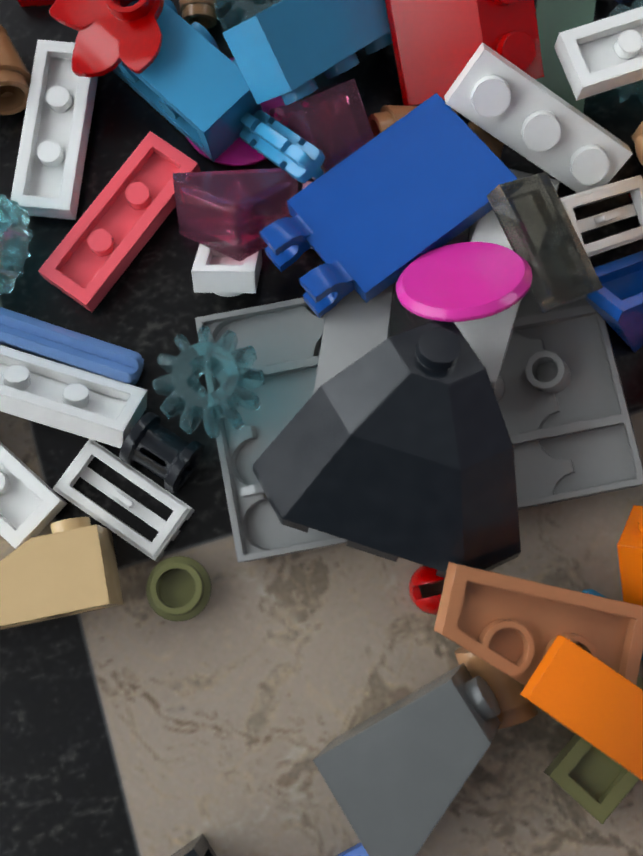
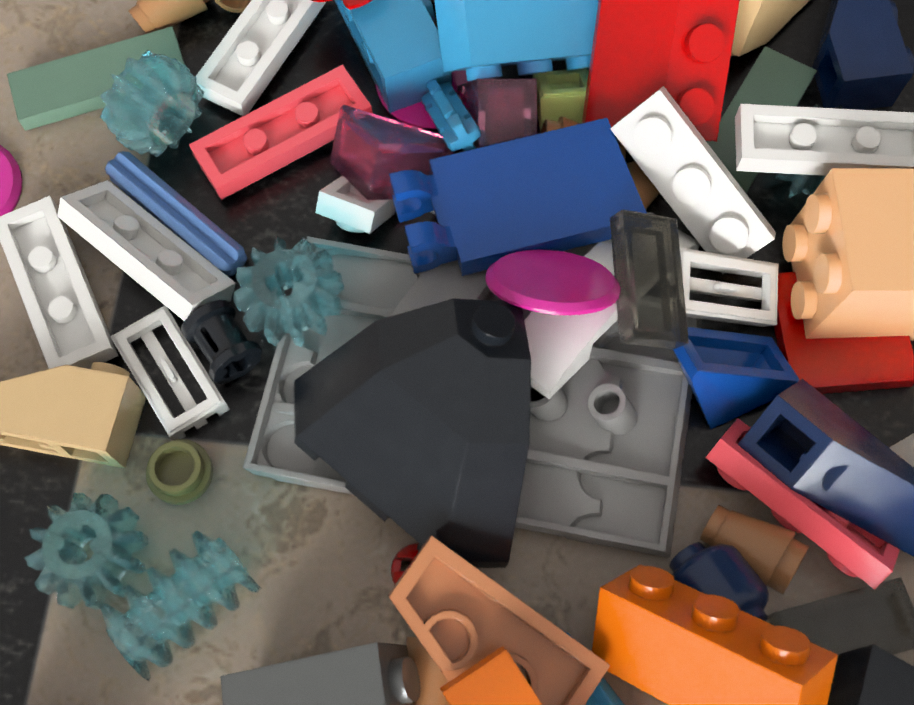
camera: 20 degrees right, 10 degrees down
(110, 704) = (63, 553): none -> clear light blue gear
(238, 708) = (177, 601): none -> clear light blue piece
(376, 80) = (561, 95): none -> yellowish green slope

